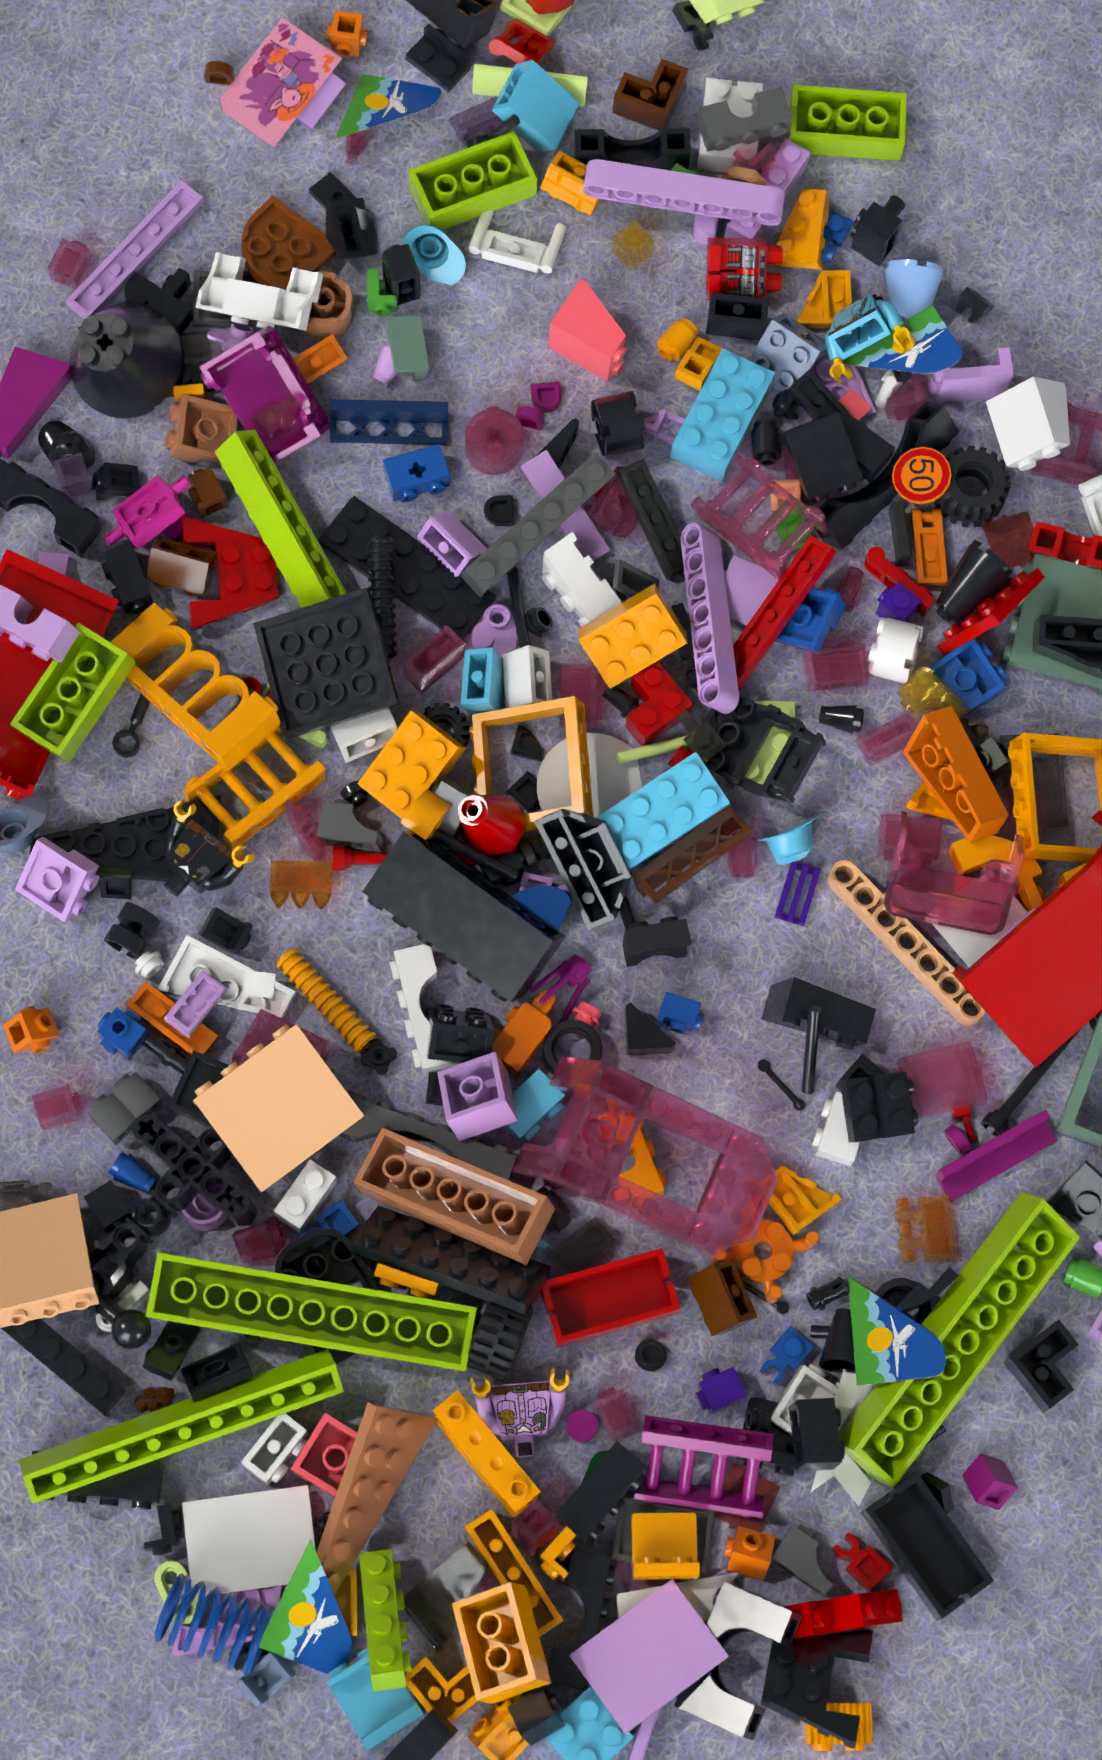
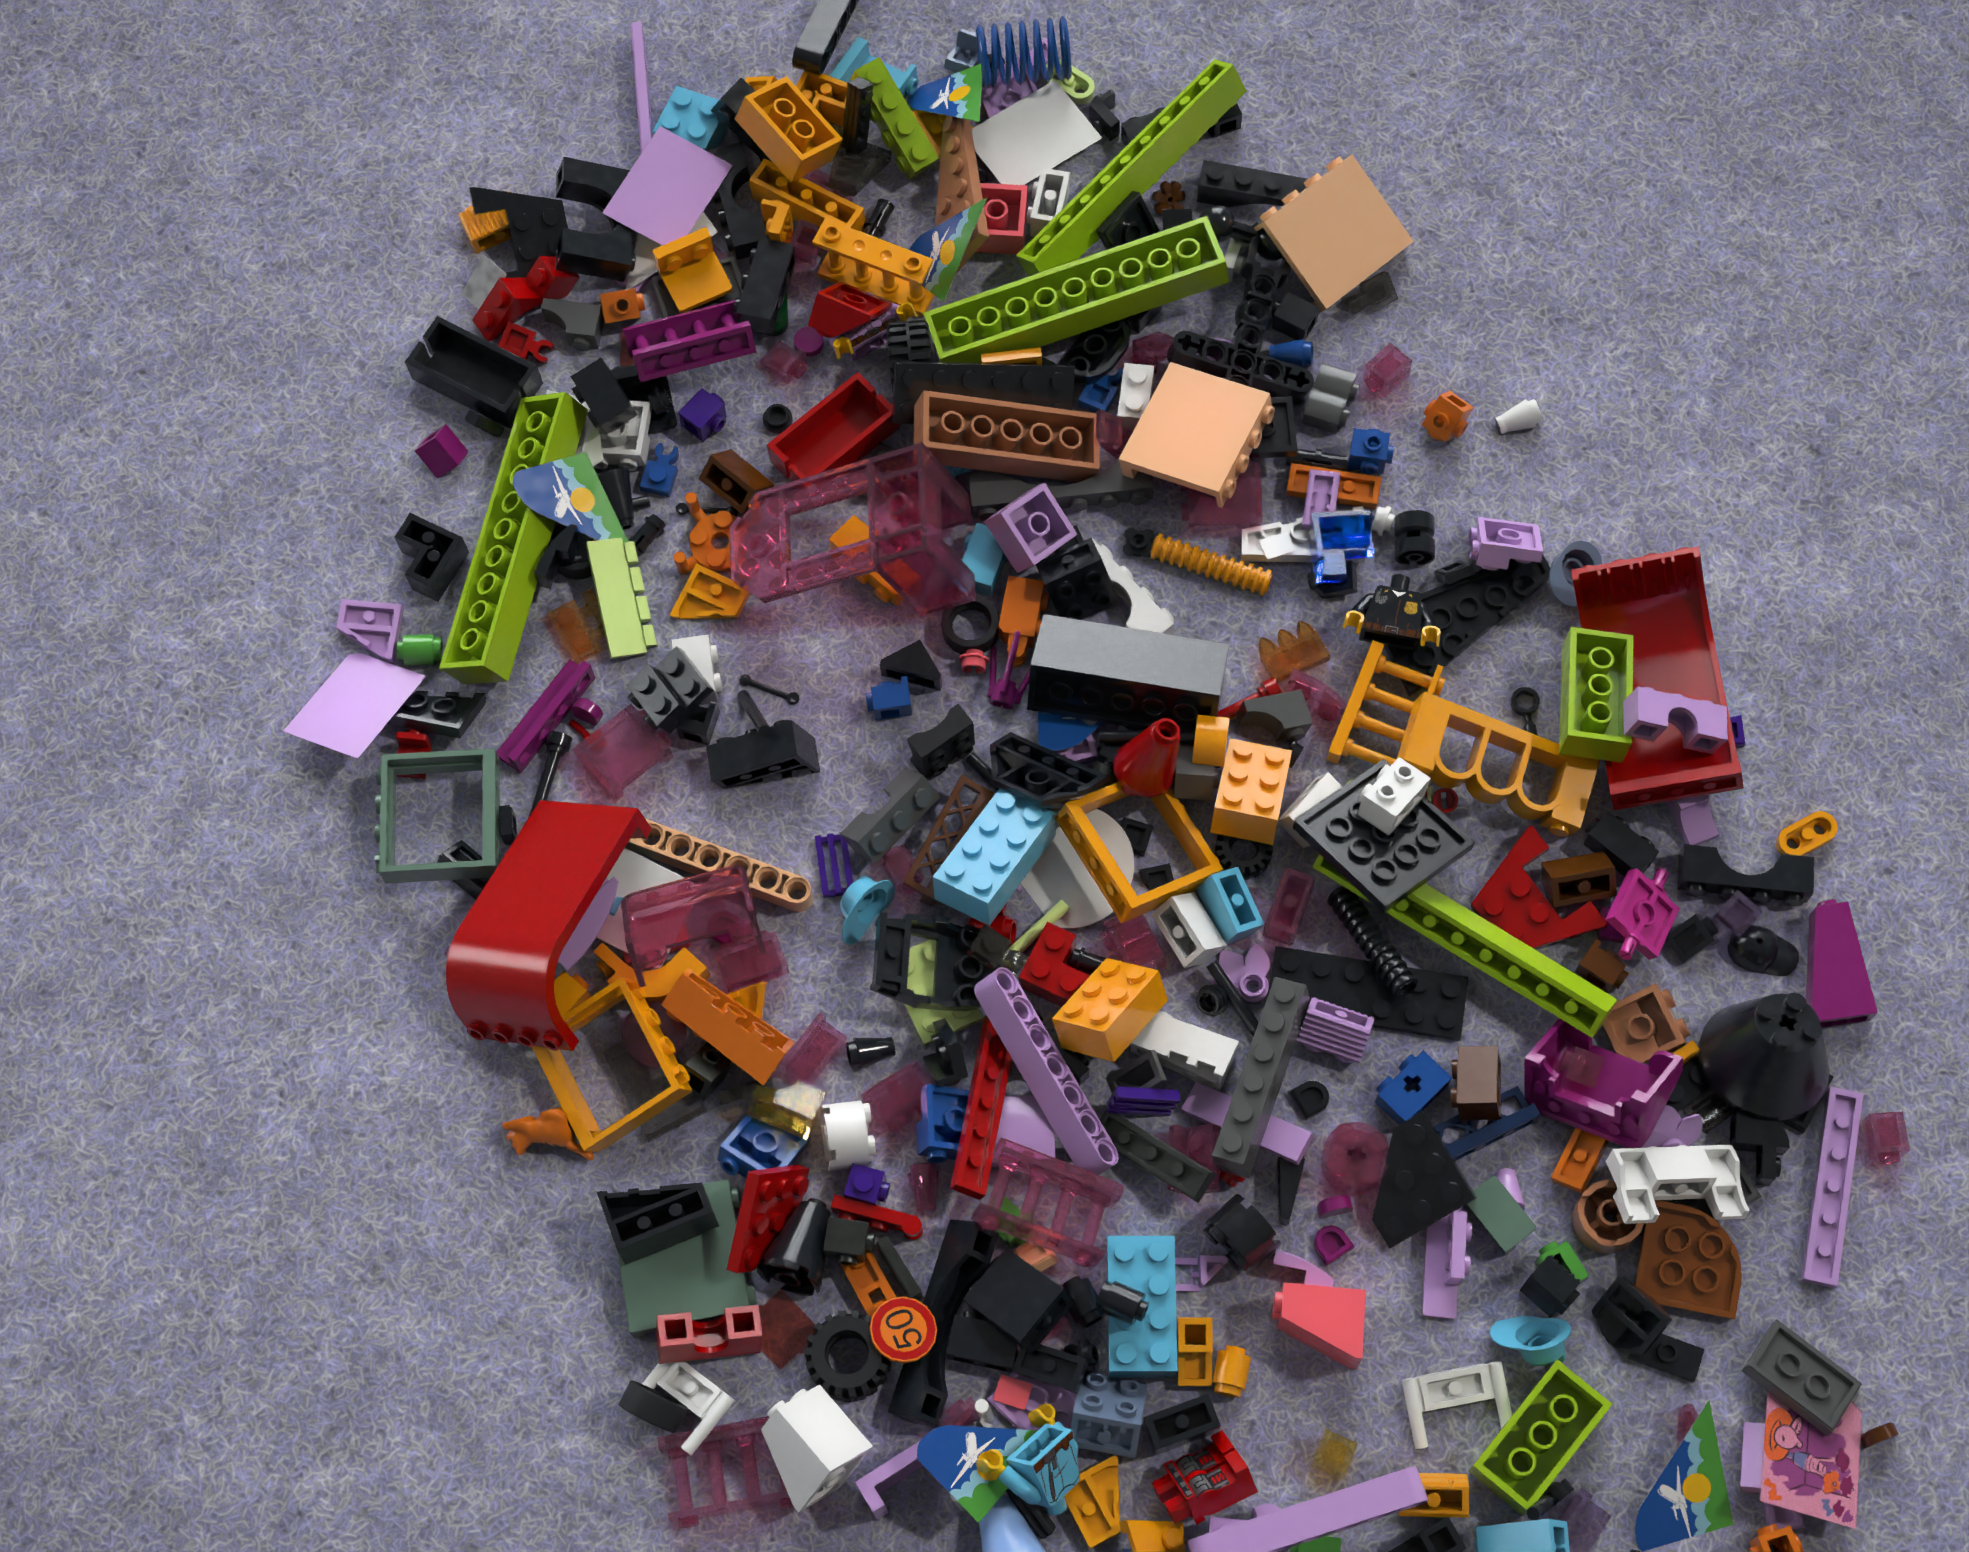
camera: 165 degrees right, 5 degrees down
(137, 289) = (1802, 1149): black tile -> none
(212, 953) = (1337, 538): none -> clear blue panel
(250, 135) = (1802, 1377): none -> dark grey tile
(301, 686) = (1393, 795): none -> white brick
(347, 1160) = (1111, 433): none -> clear pink slope
(363, 448) = (1477, 1083): none -> brick
(412, 1432) = (946, 247): none -> sticker
(421, 1631) = (857, 115): none -> black piece
(455, 393) = (1419, 1182): none -> black plate
(457, 1520) = (882, 213): none -> black pin
(461, 347) = (1445, 1264): none -> lavender bracket
(534, 1412) = (844, 308): none -> red slope
(580, 388) = (1313, 1274): none -> lavender slope
(646, 564) = (1143, 1101): none -> dark purple tile
(708, 906) = (877, 832): none -> dark grey arch
(742, 405) = (1122, 1302): none -> black brick
(787, 669) = (947, 1064): none -> black bracket
(876, 1650) = (482, 281): none -> flat silver sticker
(886, 1231) = (616, 598): none -> yellowish green windscreen
(933, 564) = (848, 1241): none -> pearl dark grey brick
(1071, 1064) = (507, 824): none -> black tile

